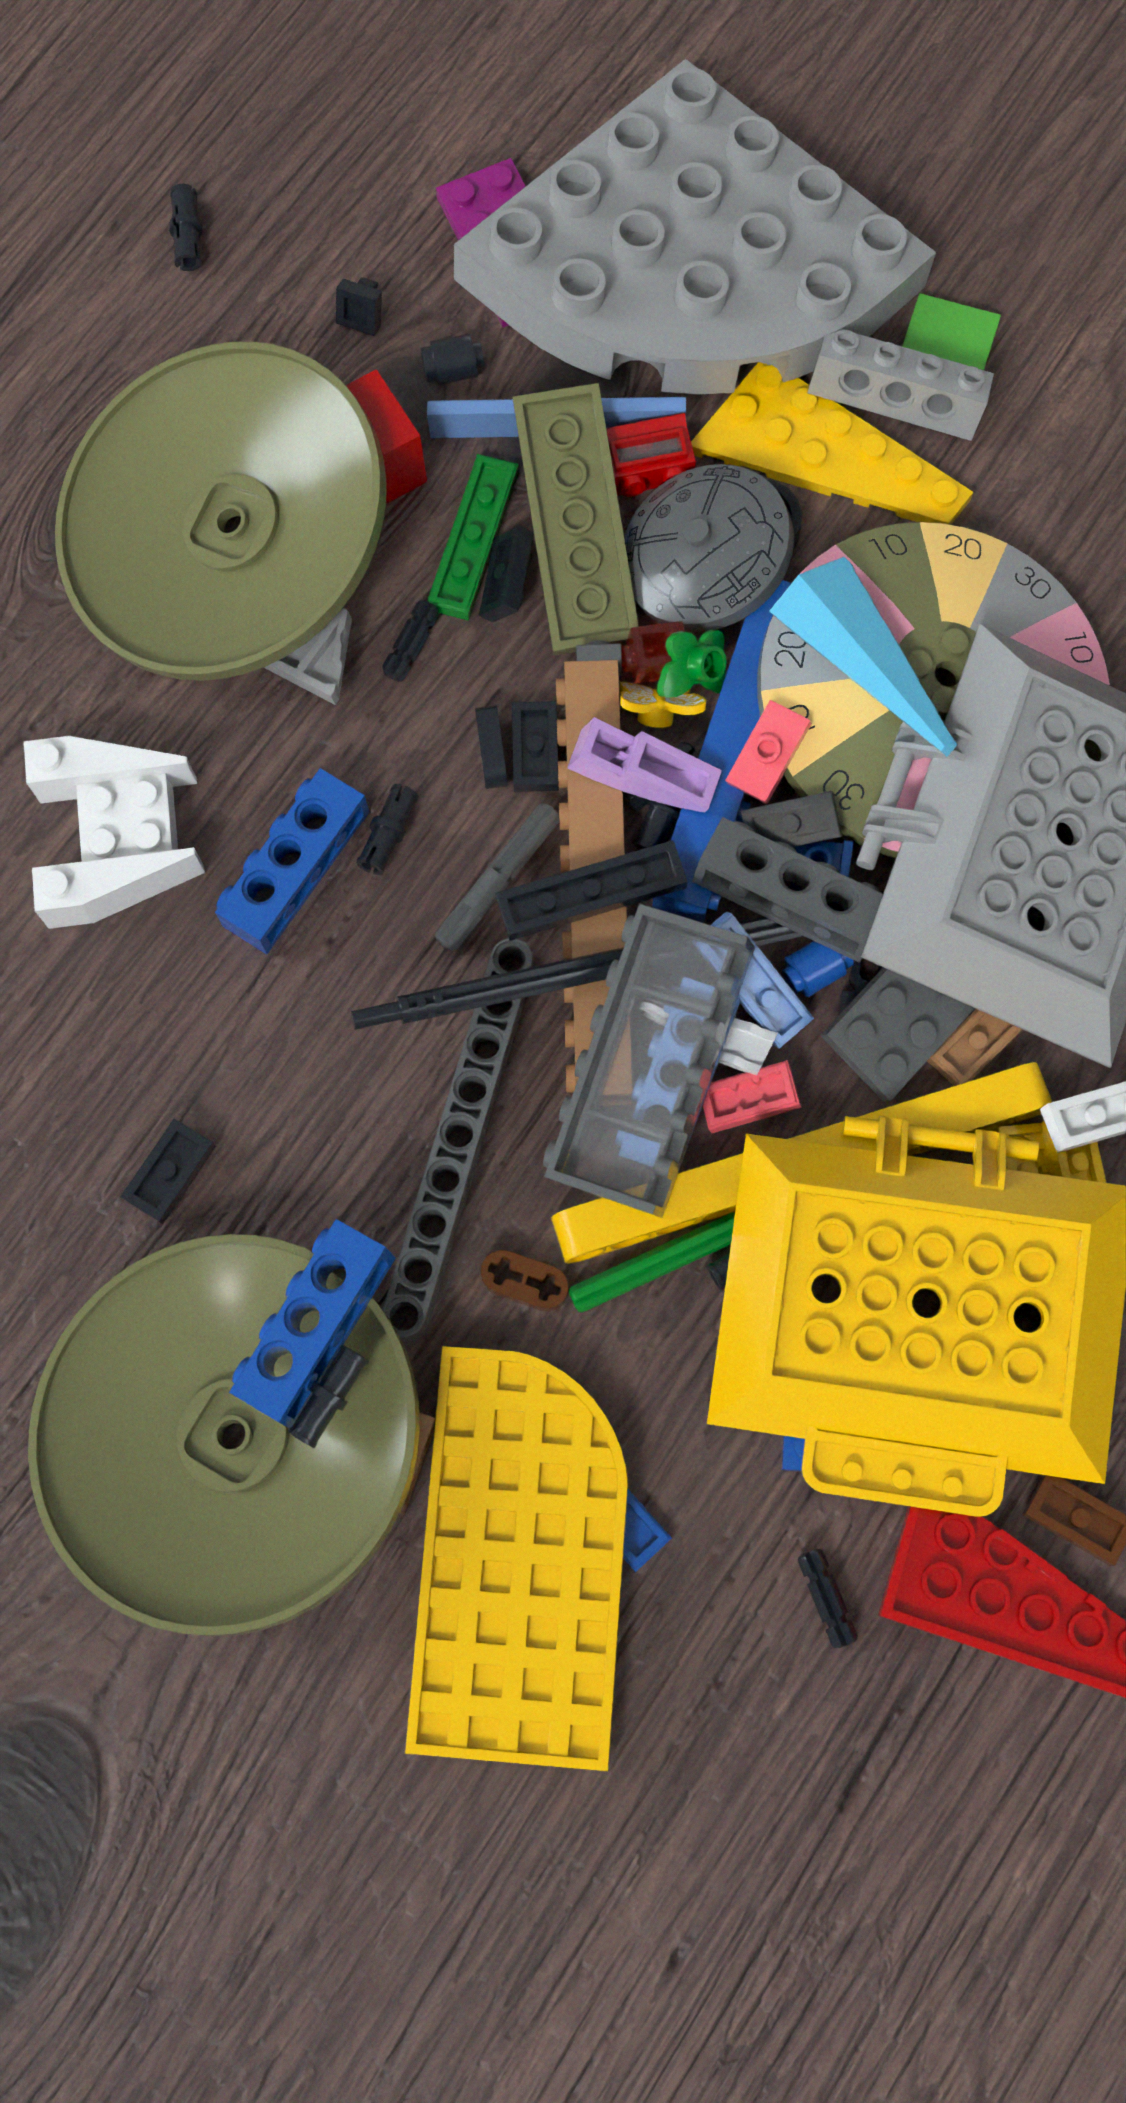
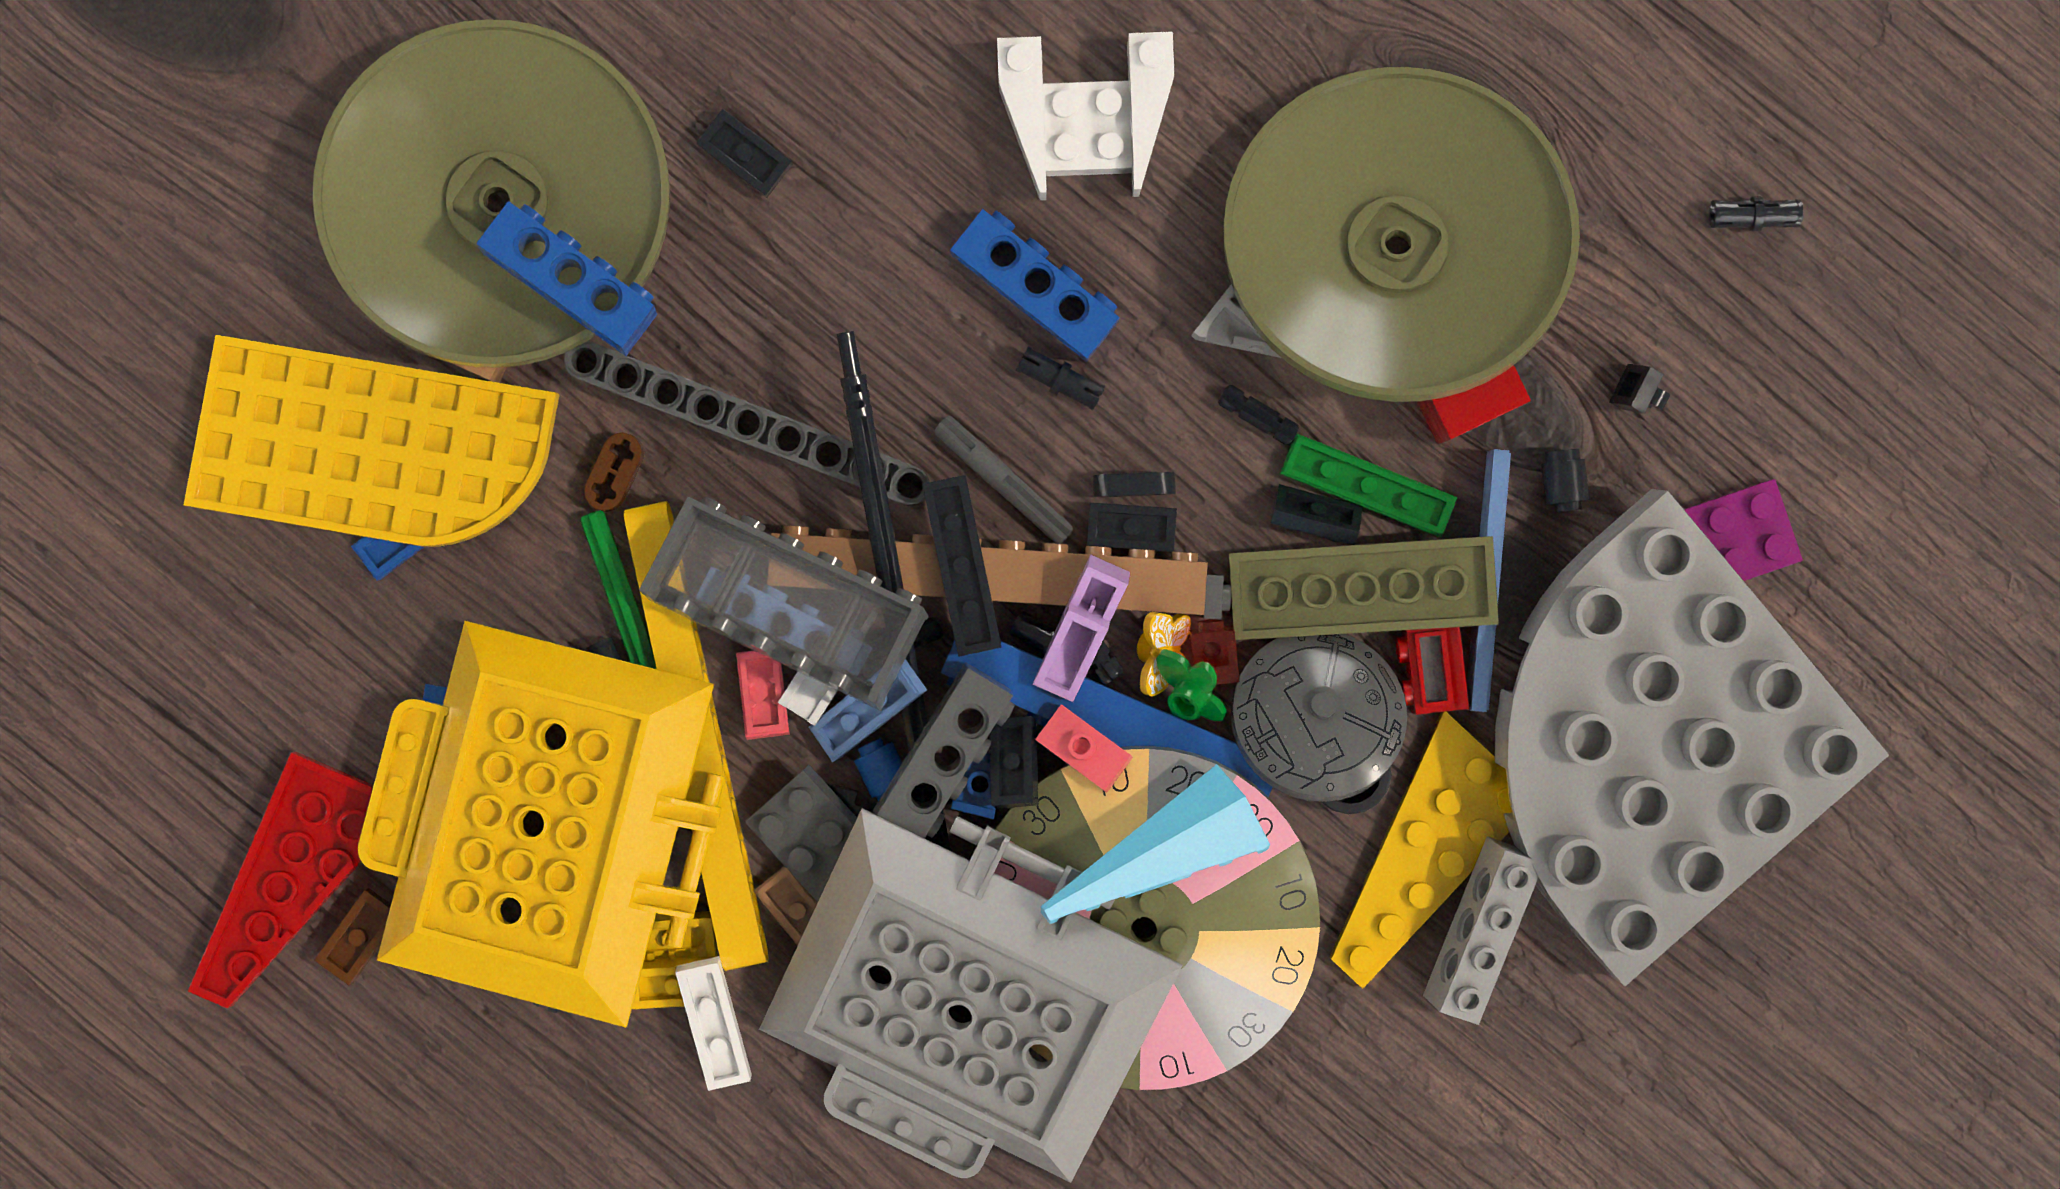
camera: 90 degrees right, 15 degrees up
(328, 1396) = (502, 288): black pin -> none
(827, 1598) = (313, 709): black axle -> none
(951, 331) = (1539, 988): bright green tile -> none

